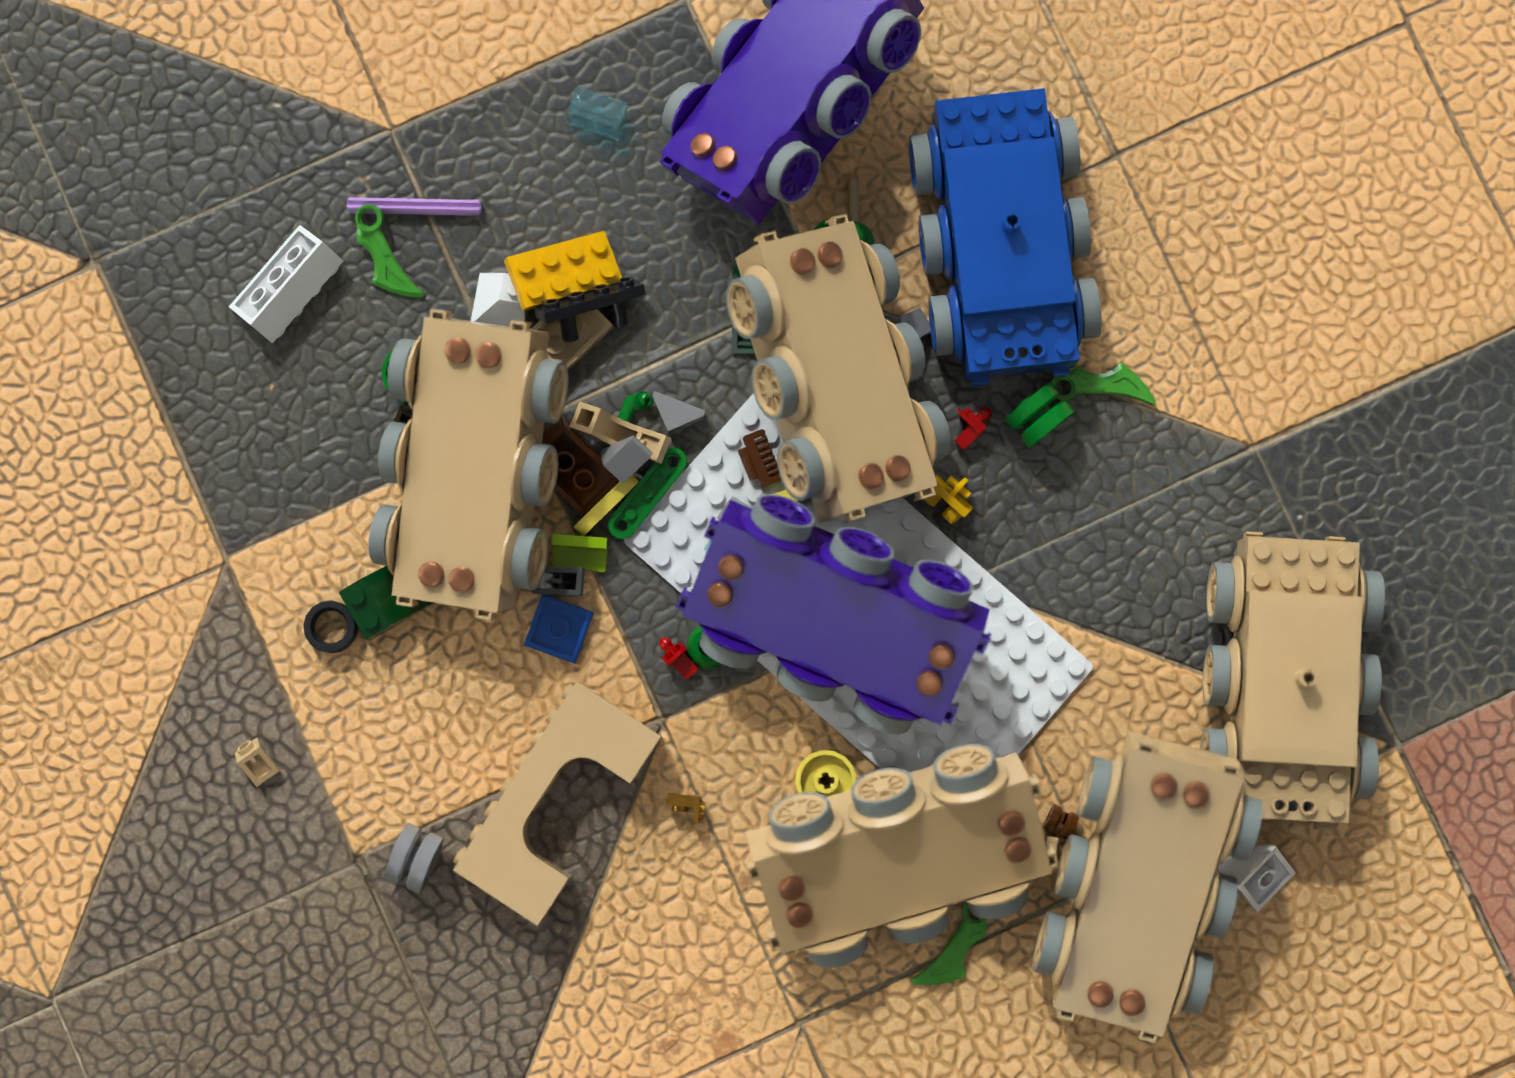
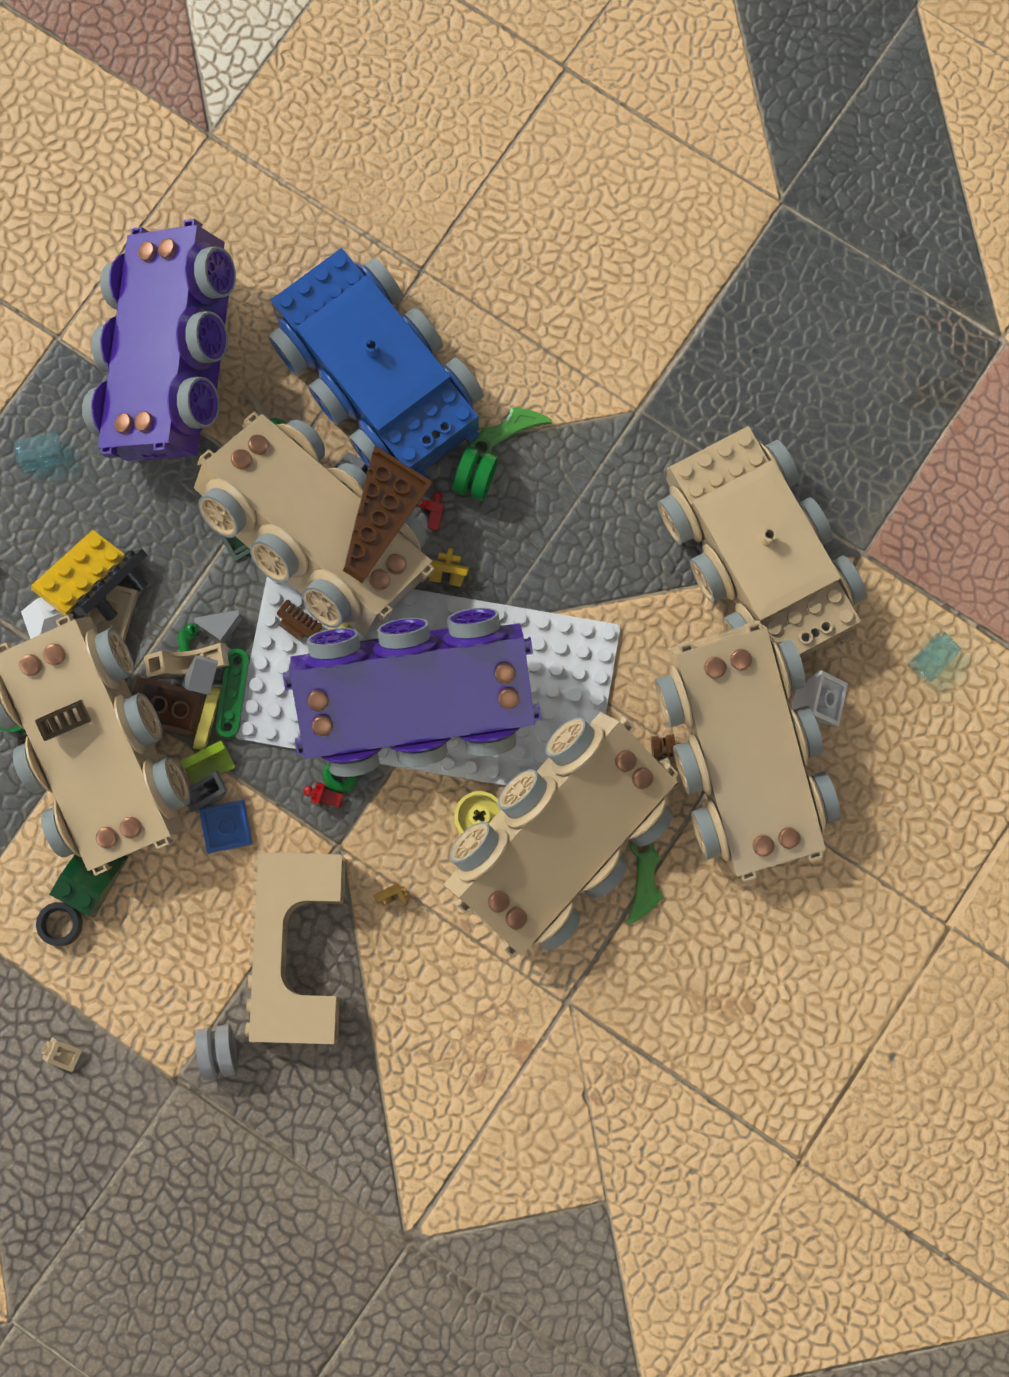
camera: 25 degrees left, 5 degrees down
(434, 427) = (44, 721): none -> dark brown slope
(925, 398) = (385, 505): none -> reddish brown wing
(1404, 901) = (934, 656): none -> clear light blue hinge

